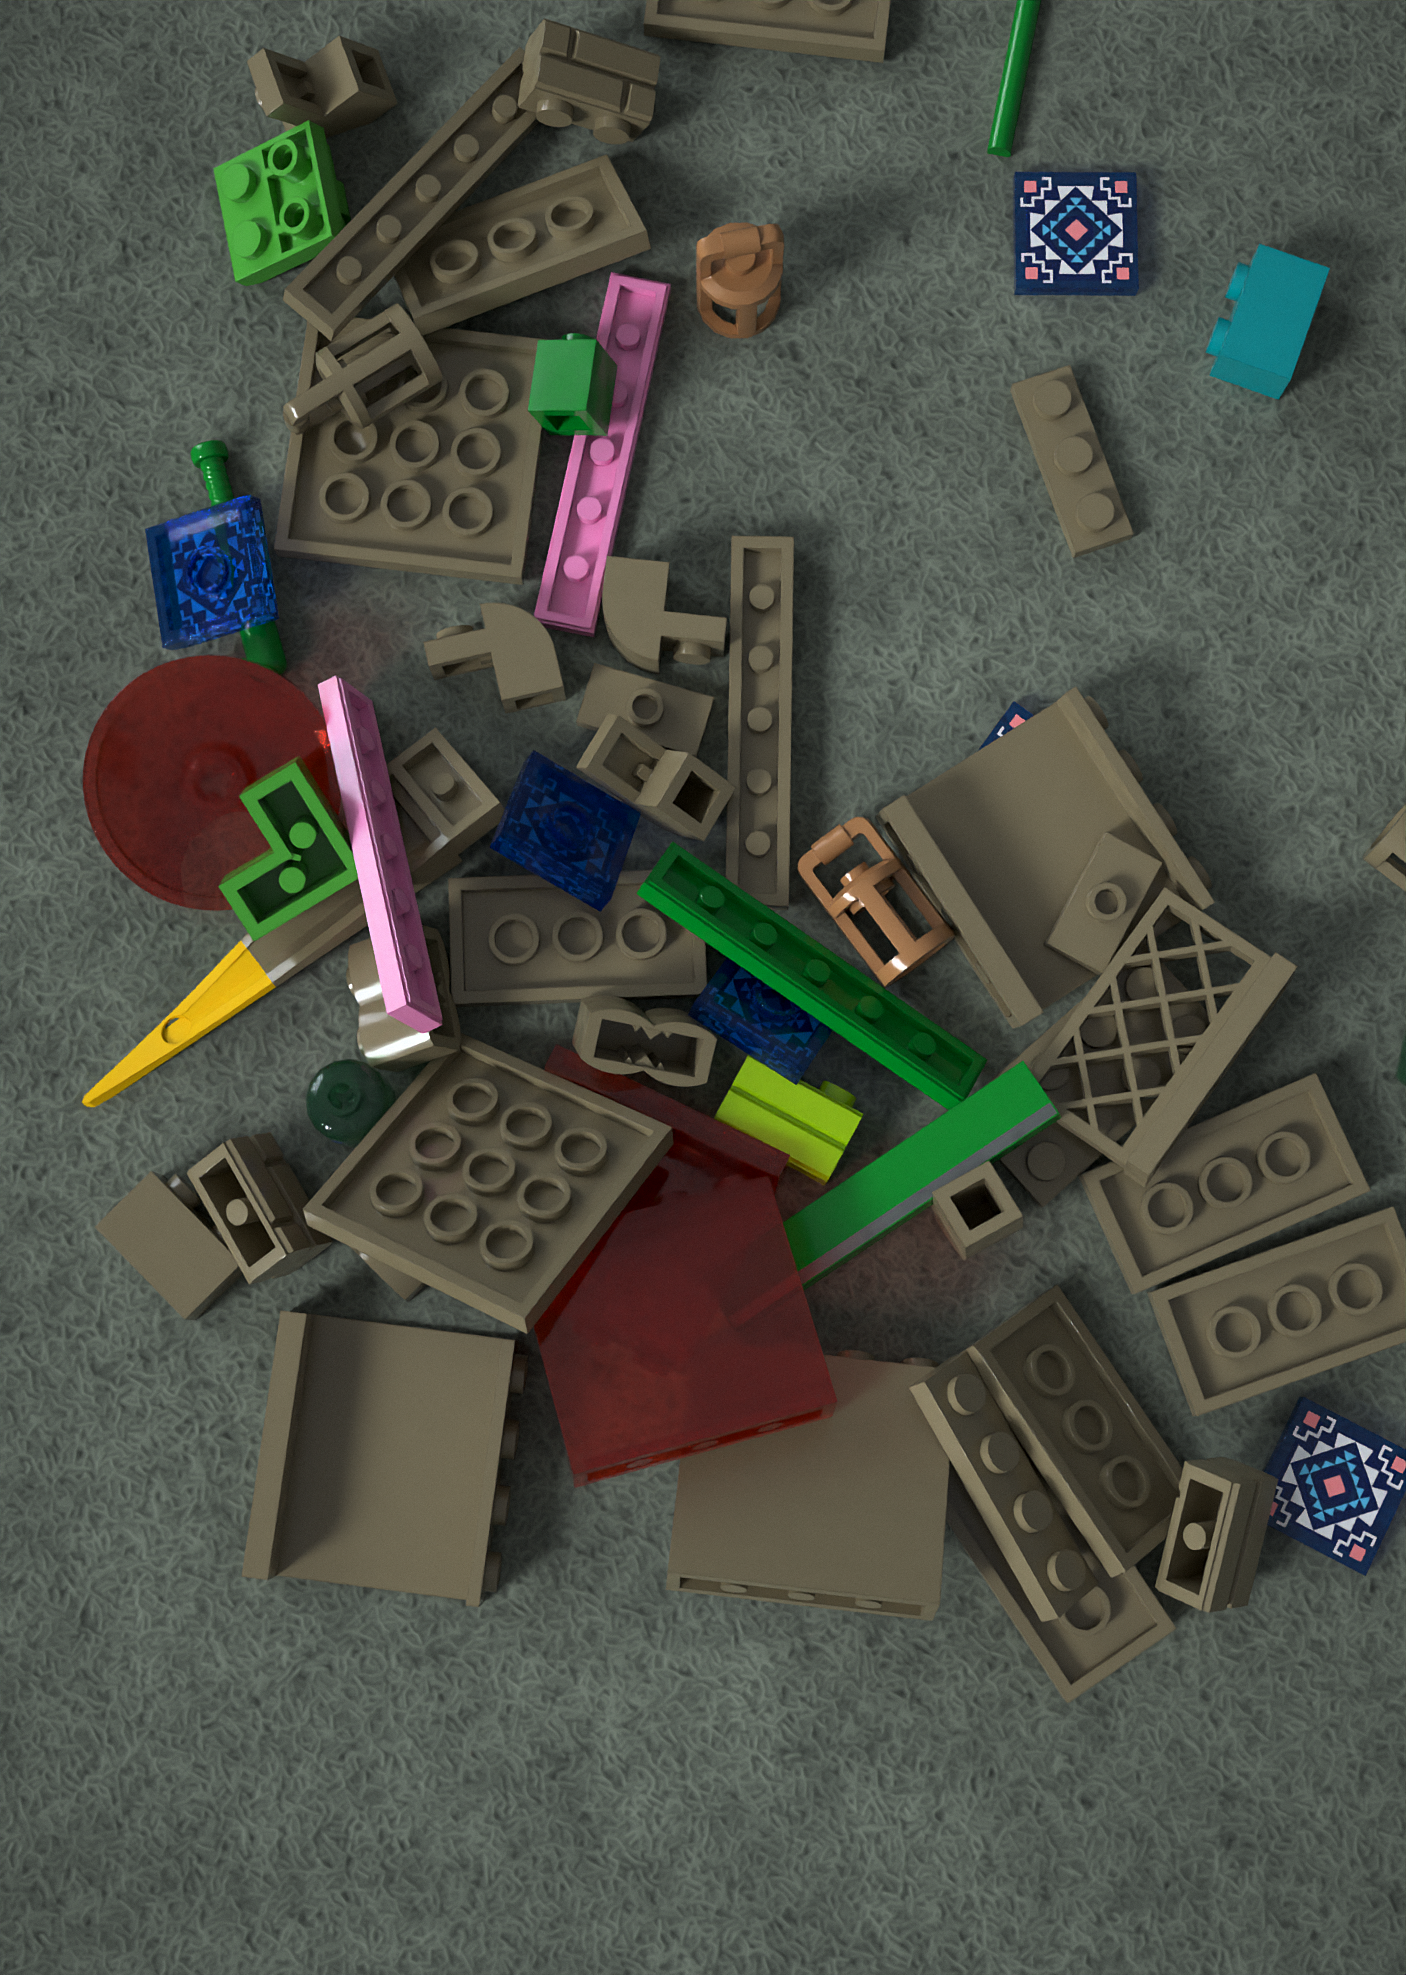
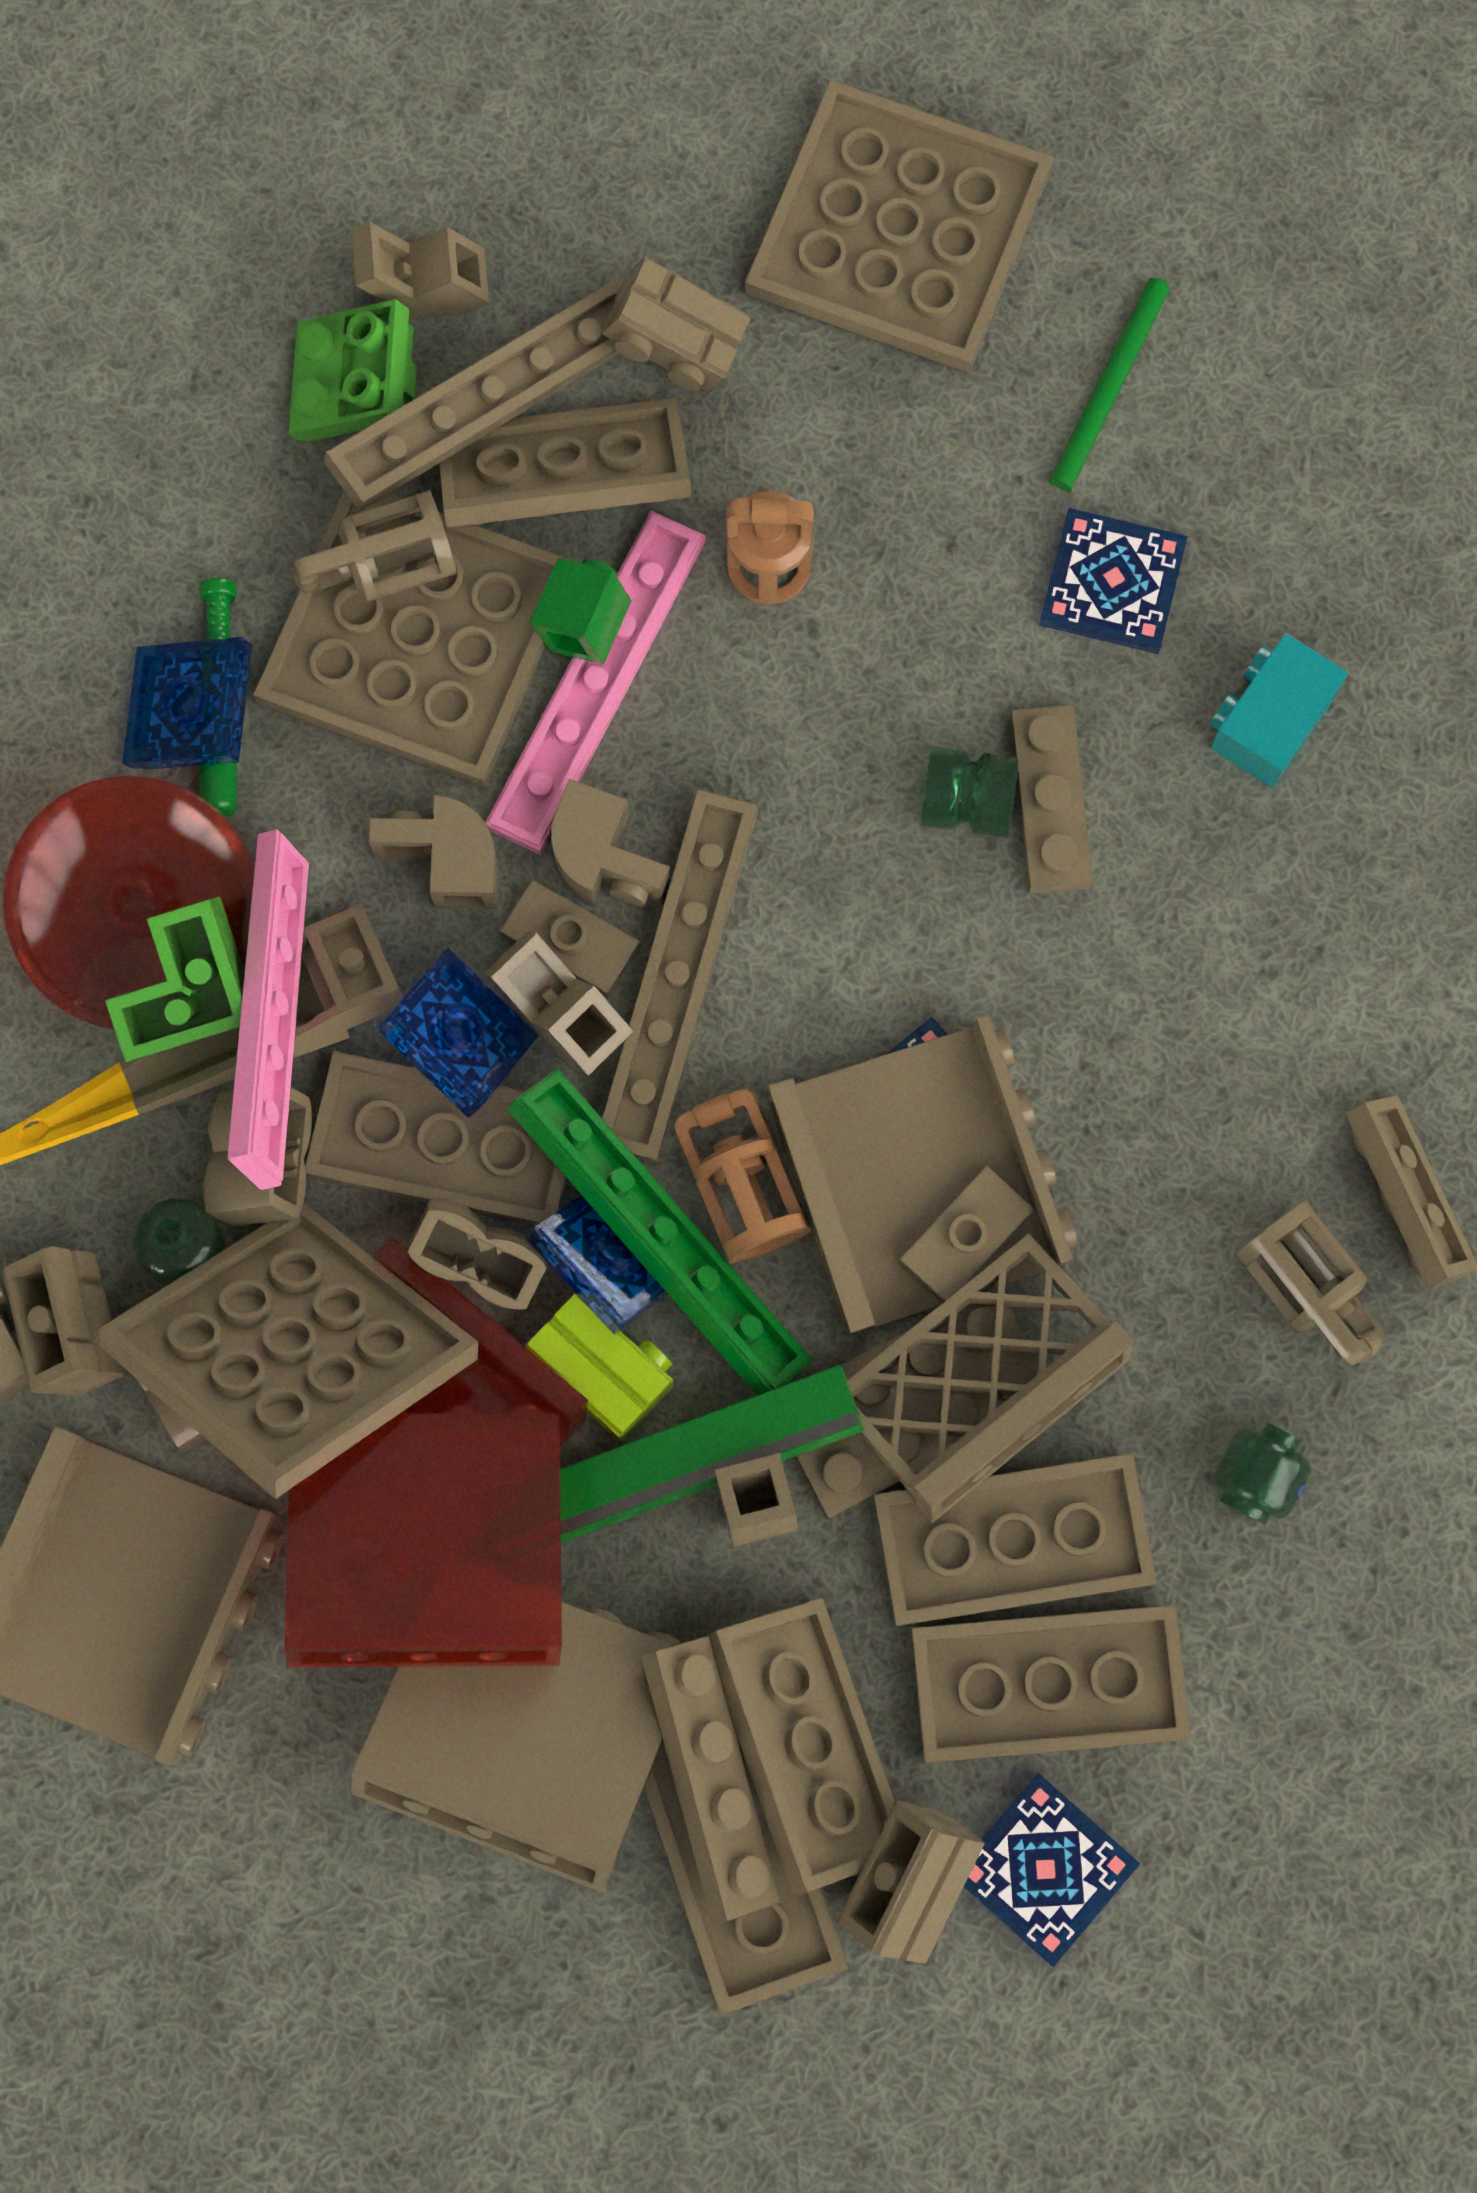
camera: 15 degrees right, 5 degrees down
(995, 473) = (969, 791): none -> clear green wheel

